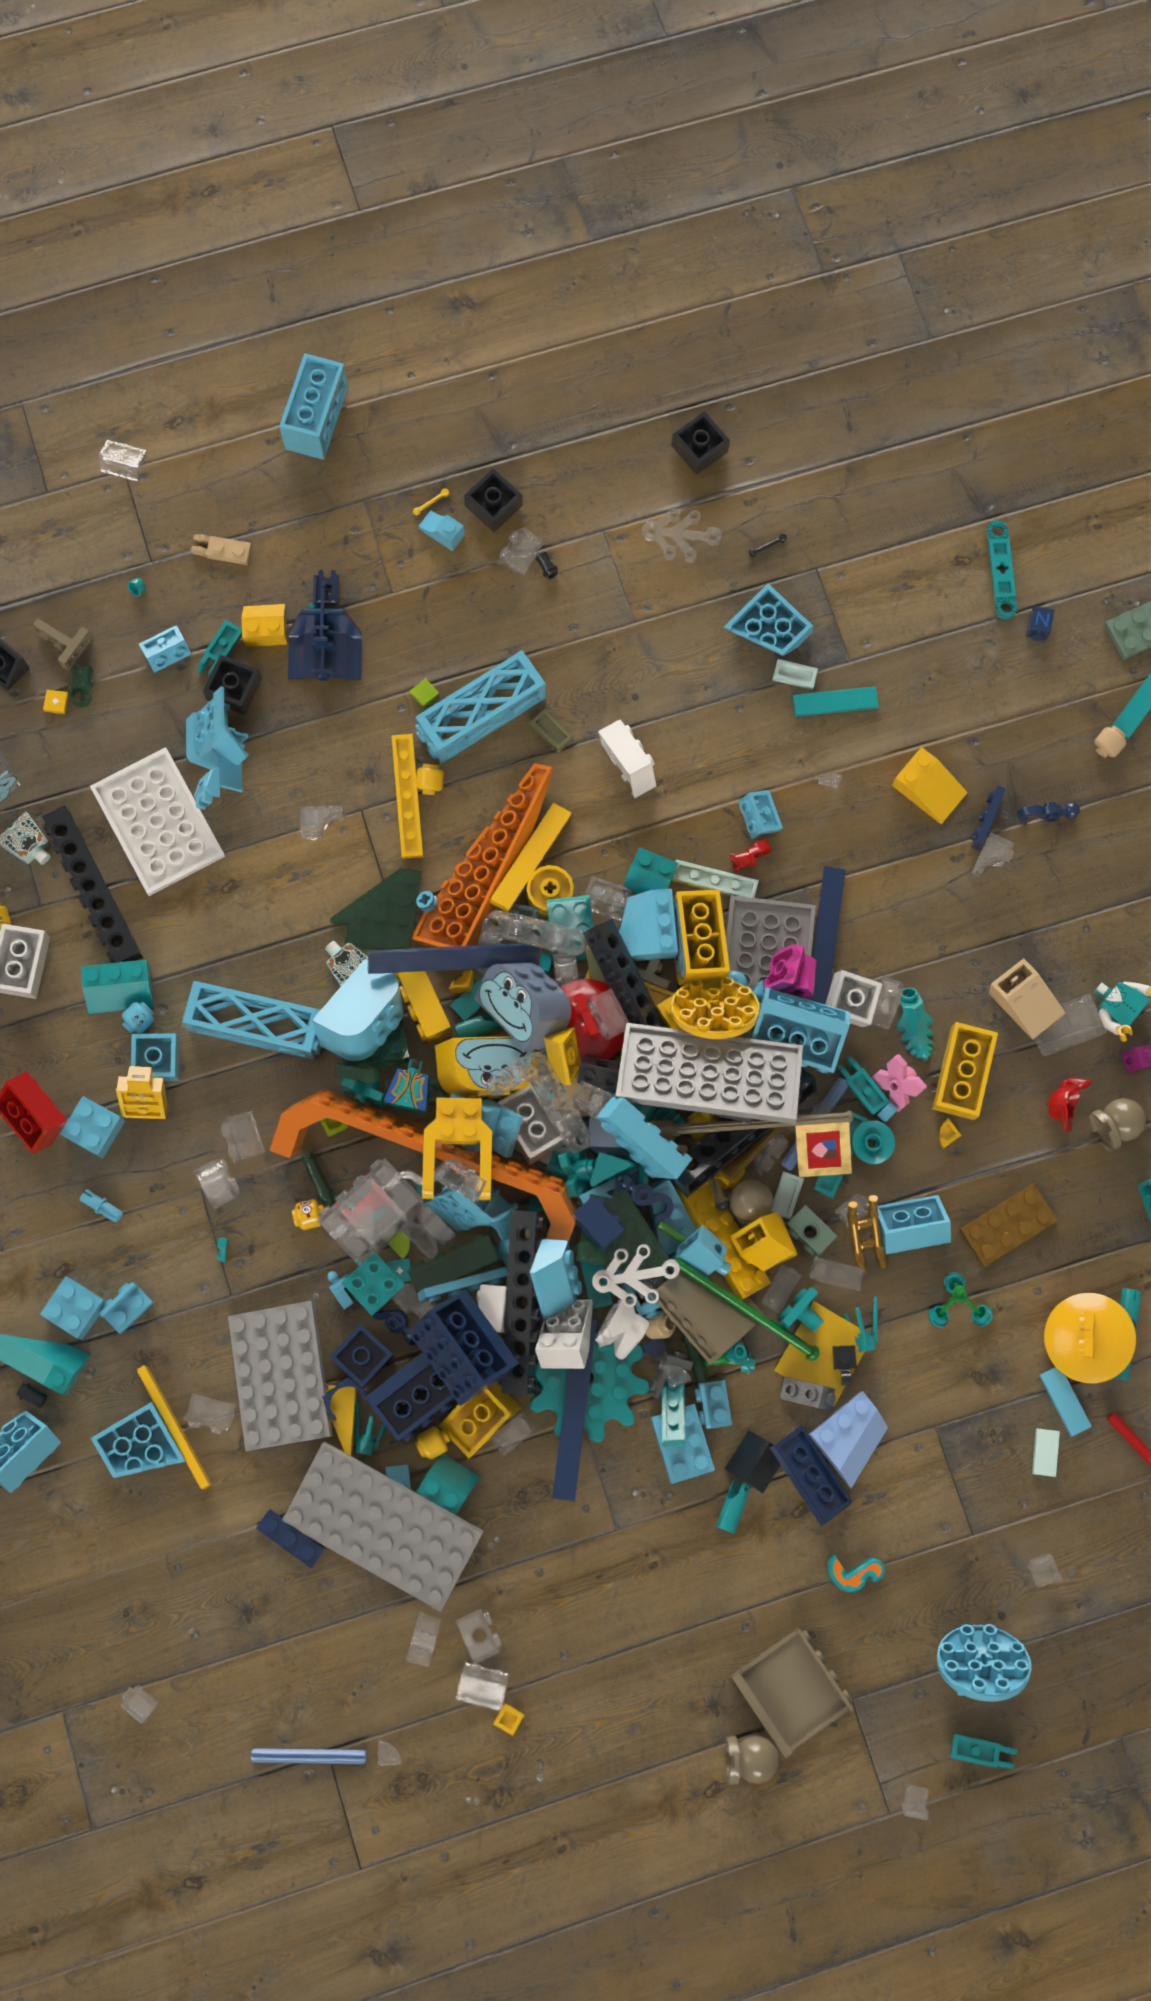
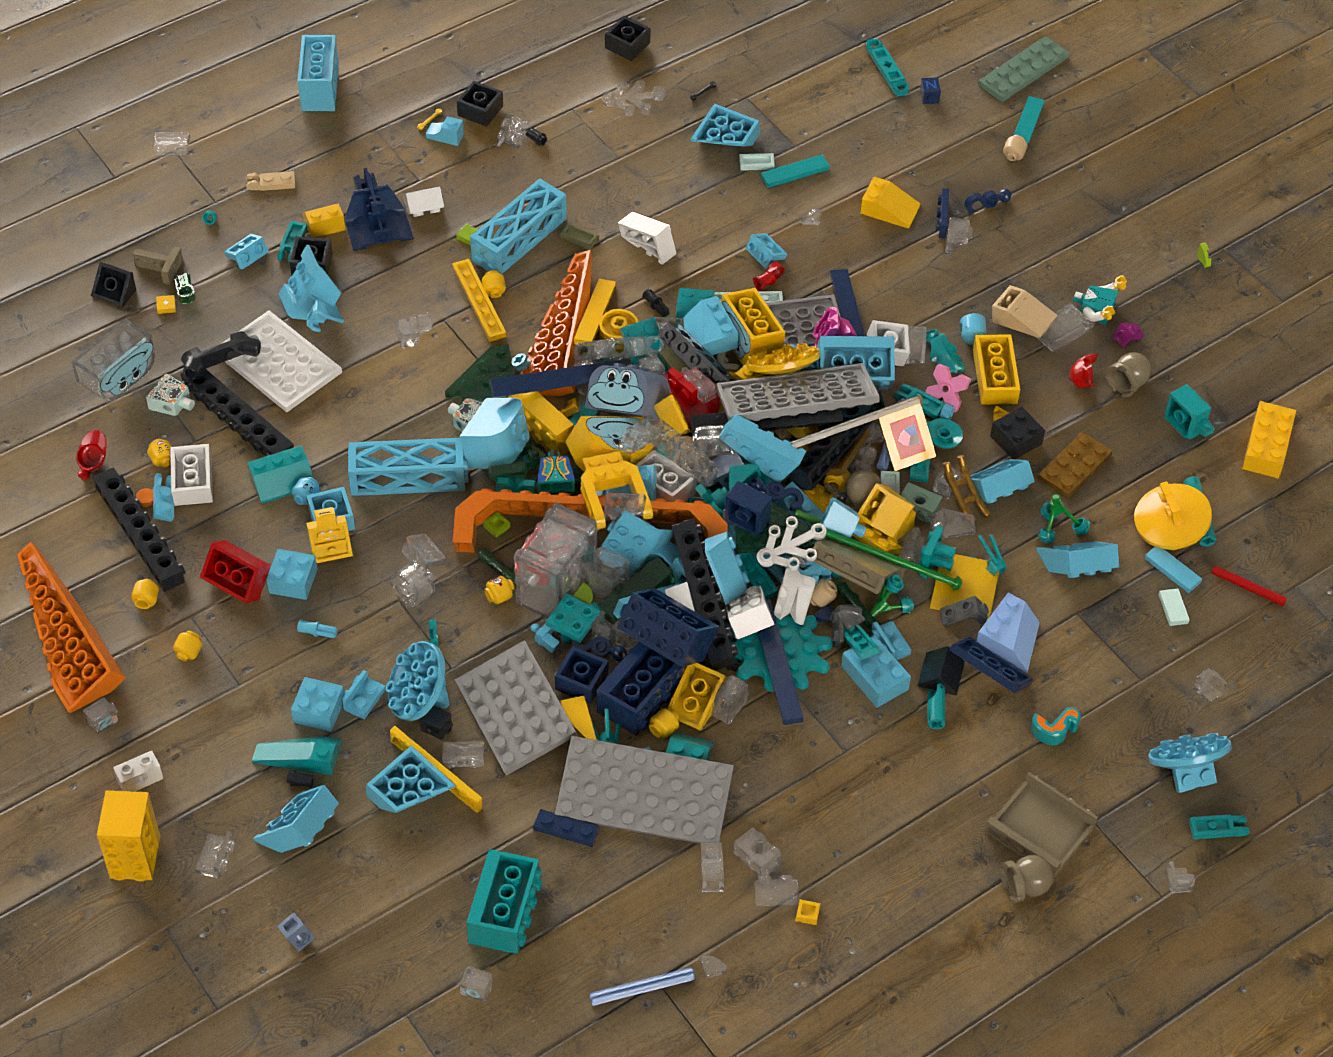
camera: 15 degrees left, 25 degrees down
(59, 810) = (199, 360): none -> black plate
(179, 1625) = (504, 901): none -> teal brick
(184, 1319) = (417, 682): none -> medium azure bracket
(192, 1368) = (436, 723): none -> black brick
(344, 1383) = (576, 691): dark blue cap -> none
(385, 629) = (423, 200): none -> white slope
(607, 857) = (656, 302): none -> black axle
(845, 1359) = (985, 583): black plate -> none
(957, 1166) = (1017, 433): none -> black brick
(960, 1005) = (972, 325): none -> medium azure helmet
(963, 1360) = (1080, 558): none -> medium azure wedge

